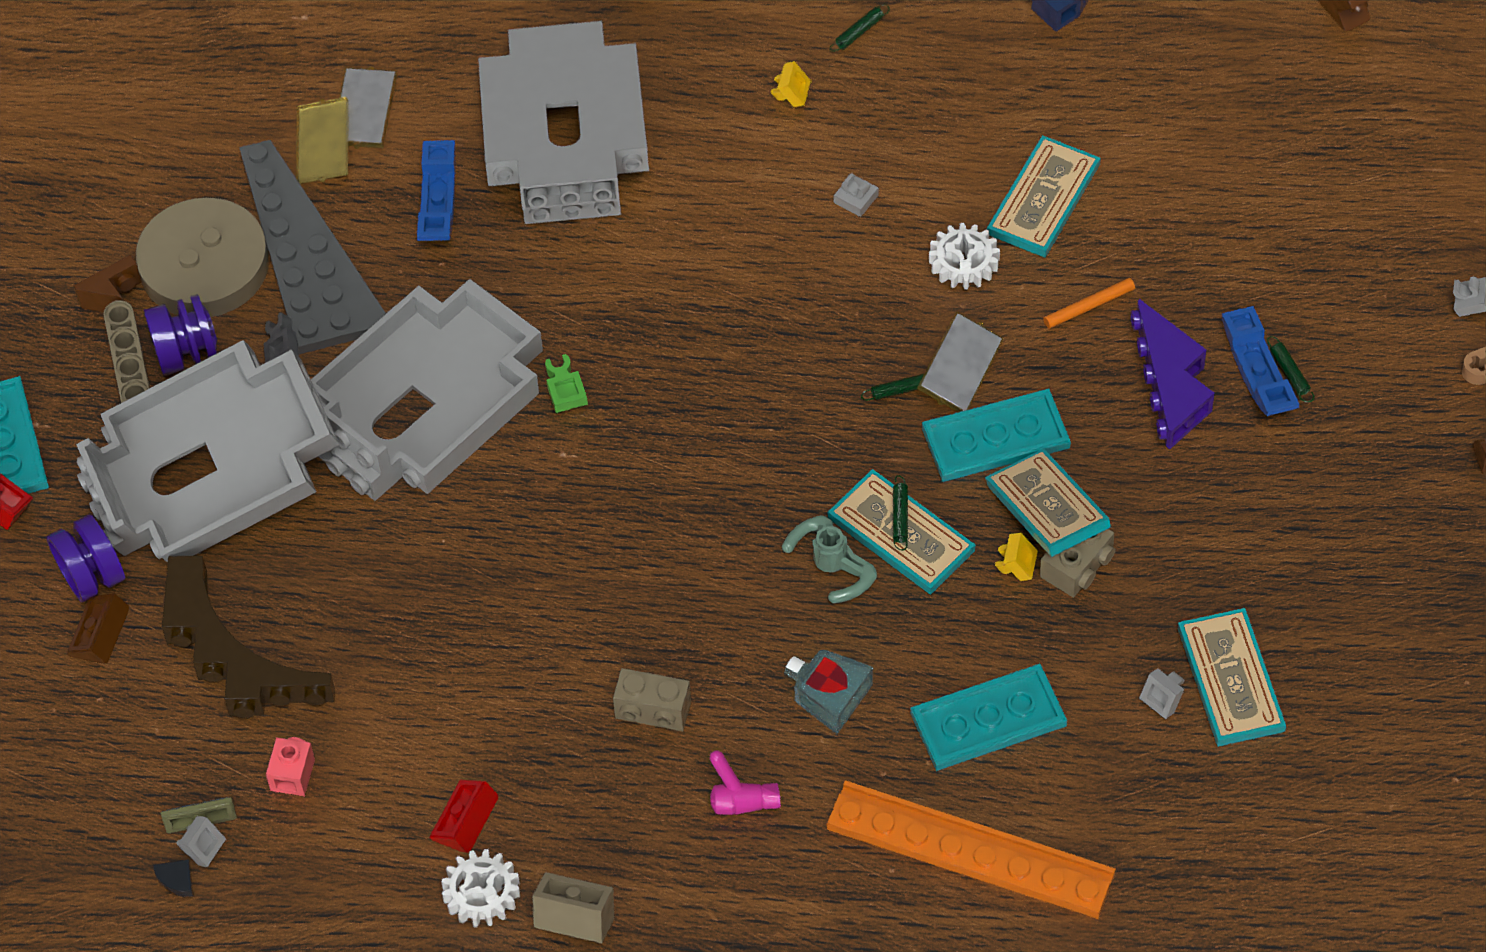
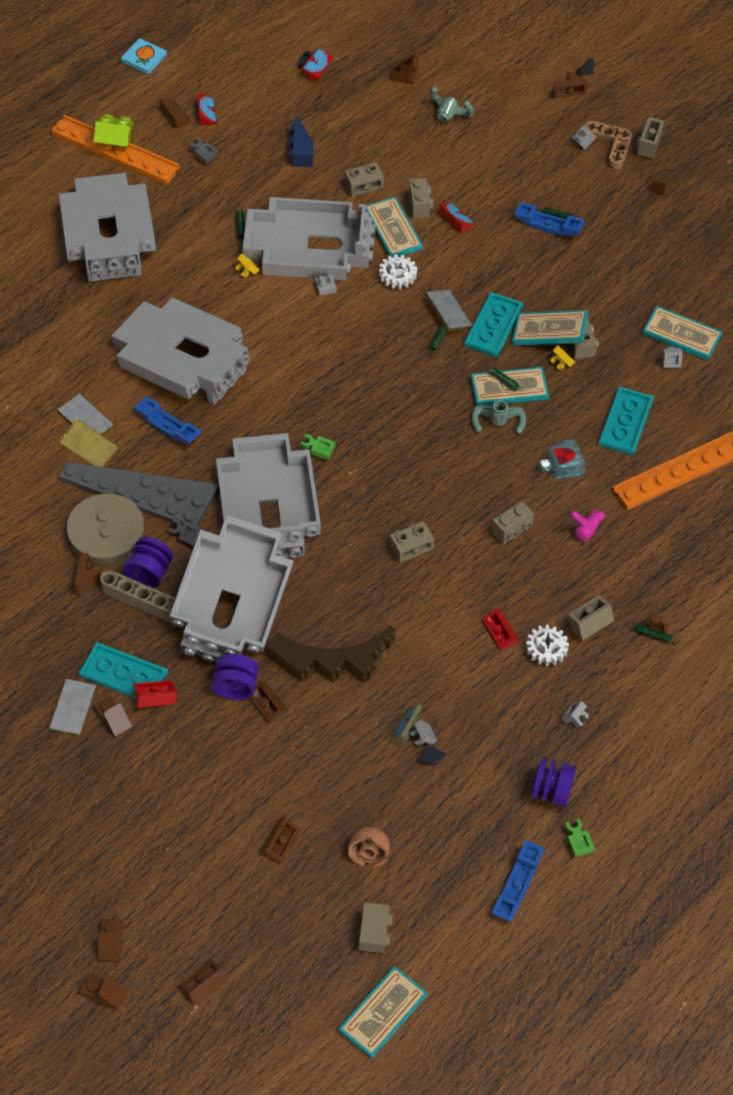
camera: 55 degrees left, 0 degrees up
(290, 766) = (418, 674): coral brick -> none
(505, 603) = (411, 541): none -> dark tan brick
(882, 82) = (282, 235): none -> light grey panel
(1089, 100) = (364, 179): none -> dark tan brick
(1089, 303) = (461, 249): orange bar -> none
(1124, 185) = (419, 198): none -> dark tan brick
(1146, 252) = (455, 217): none -> red slope
(1170, 368) = (519, 246): dark purple slope -> none
(1336, 98) = (449, 107): none -> sand green piece

